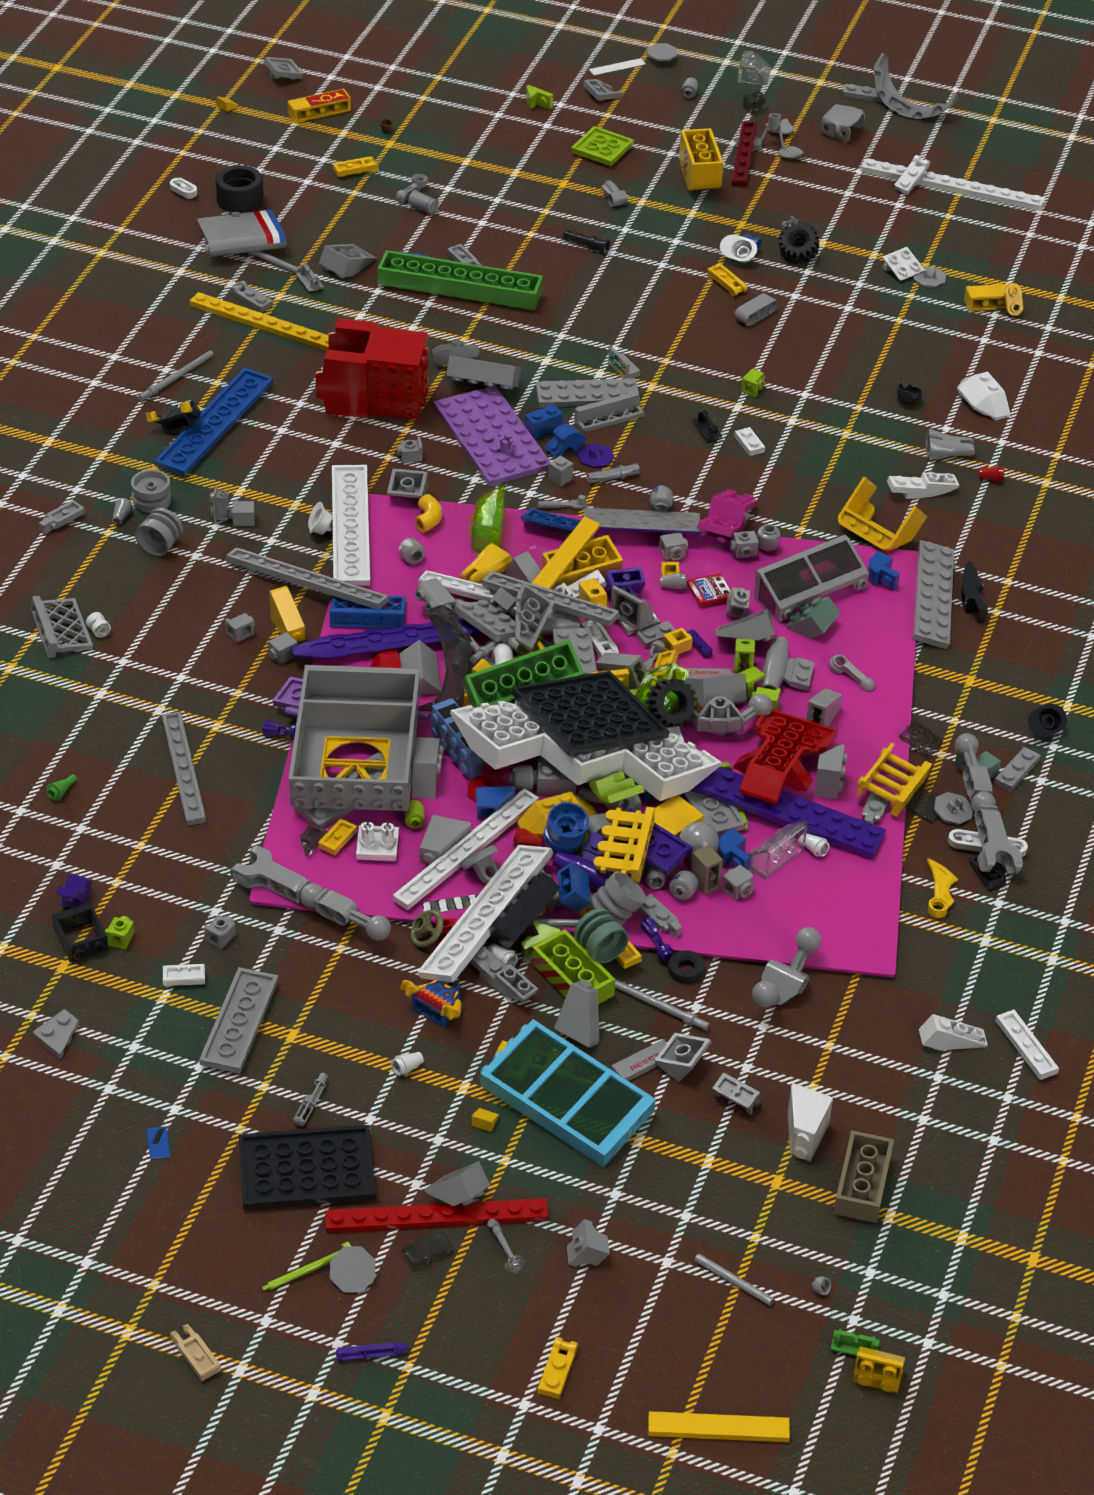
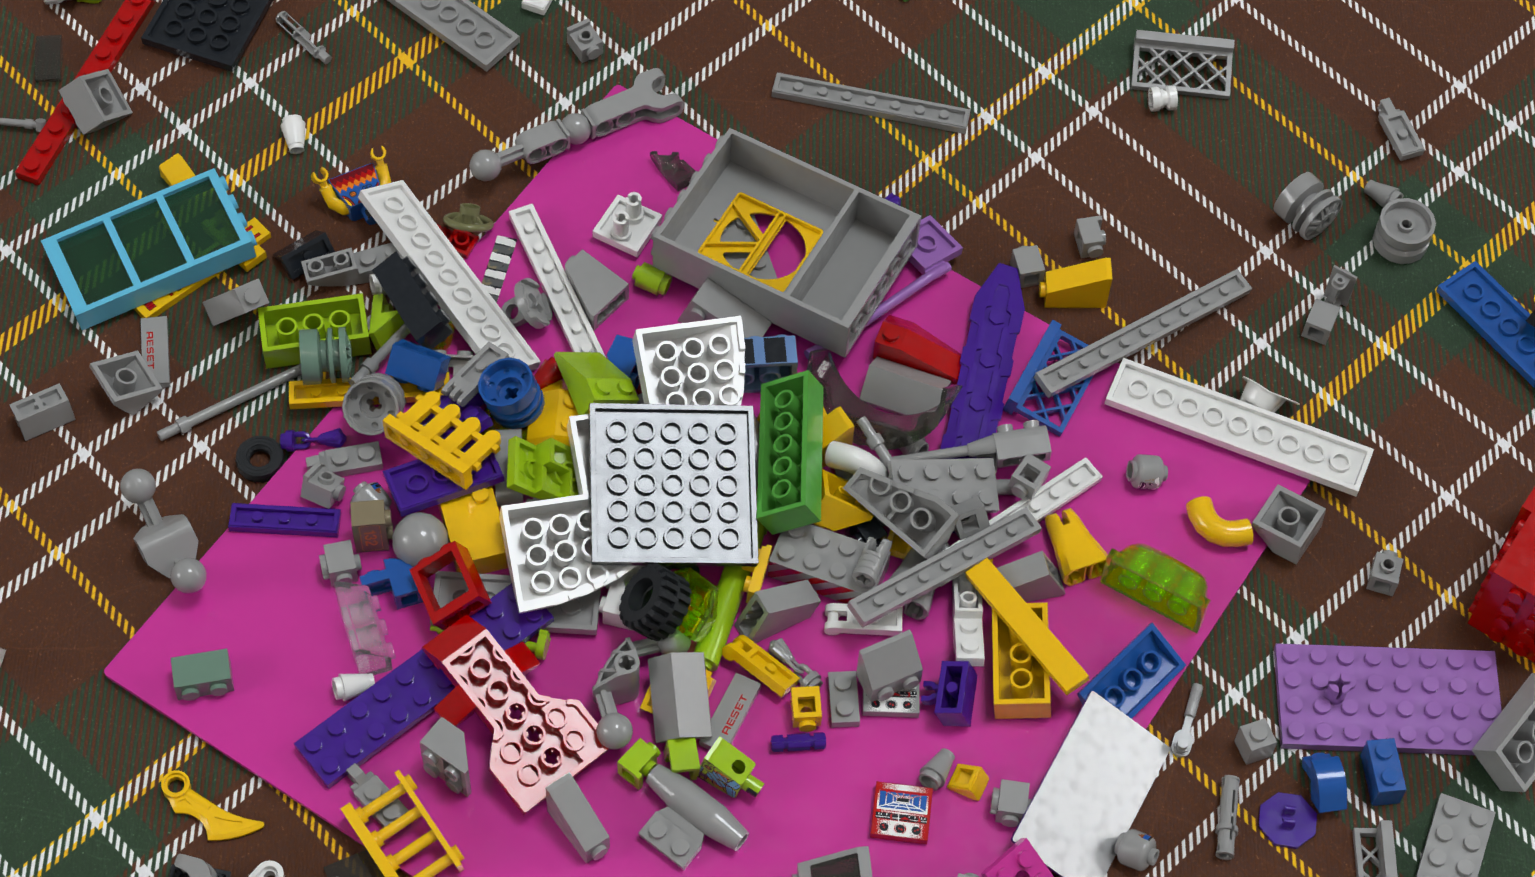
camera: 115 degrees right, 15 degrees up
(337, 837) = (658, 189): yellow plate -> none
(459, 585) = (1029, 477): none -> light grey brick
(505, 1014) = (306, 248): none -> black panel
(528, 792) = (594, 380): none -> lime slope
(563, 851) = (464, 383): none -> light grey hinge
(575, 625) = (871, 562): none -> light grey hinge
(593, 592) = (930, 626): yellow torso -> none
(689, 907) = (322, 486): none -> light grey brick
(724, 929) = (284, 520): none -> dark purple tile
(734, 796) = (467, 603): none -> red window
(738, 602) = (846, 822): light grey brick -> none
(751, 627) = (780, 801): light grey slope -> none
(863, 915) = (202, 674): none -> sand green brick

